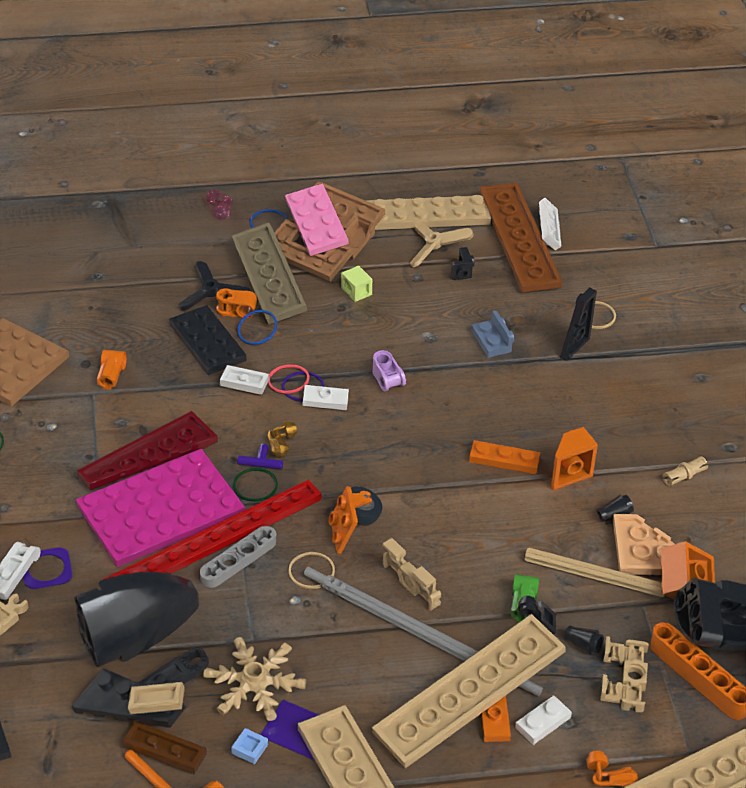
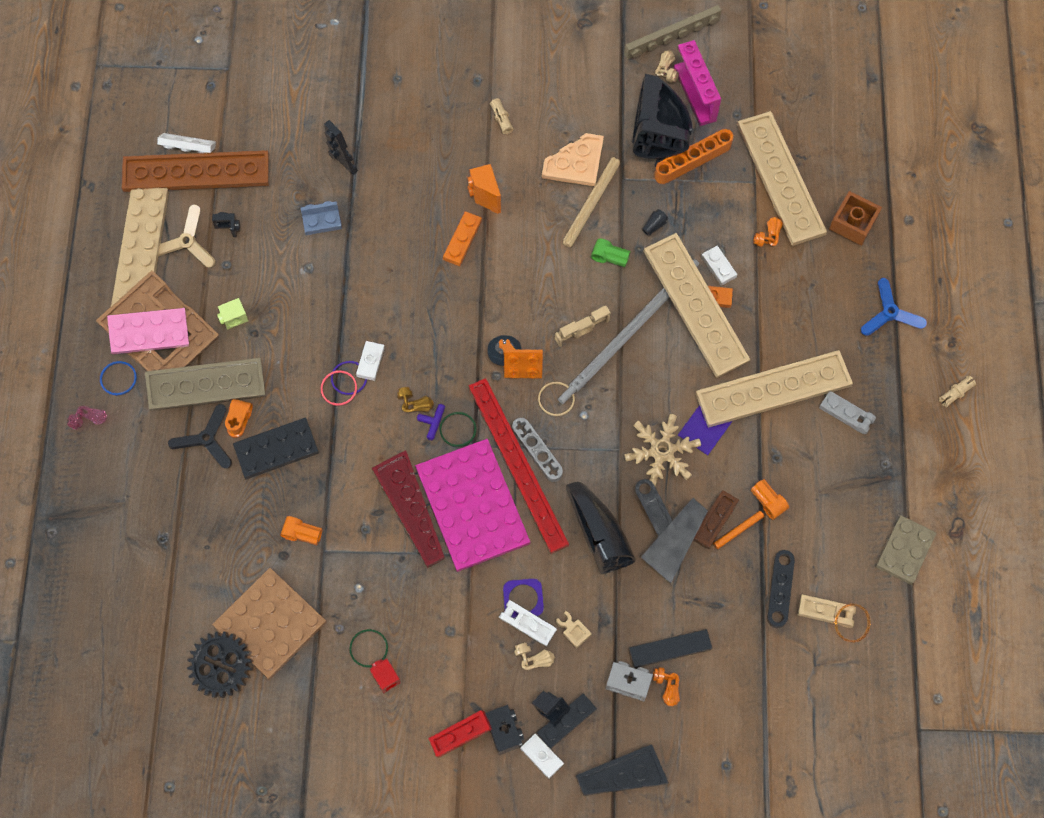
camera: 80 degrees left, 25 degrees up
(156, 698) = (690, 514): tan tile -> none
(244, 379) = (337, 422): white plate -> none
(249, 746) = (721, 460): light blue plate -> none
(263, 341) = (259, 416): blue piece -> none
(387, 371) = (353, 307): lavender piece -> none
(539, 610) = (633, 246): black plate -> none
(613, 311) = (306, 150): tan piece -> none
(618, 505) = (533, 171): black cone -> none
(629, 689) = (703, 206): tan piece -> none
(681, 564) = (613, 140): orange slope -> none

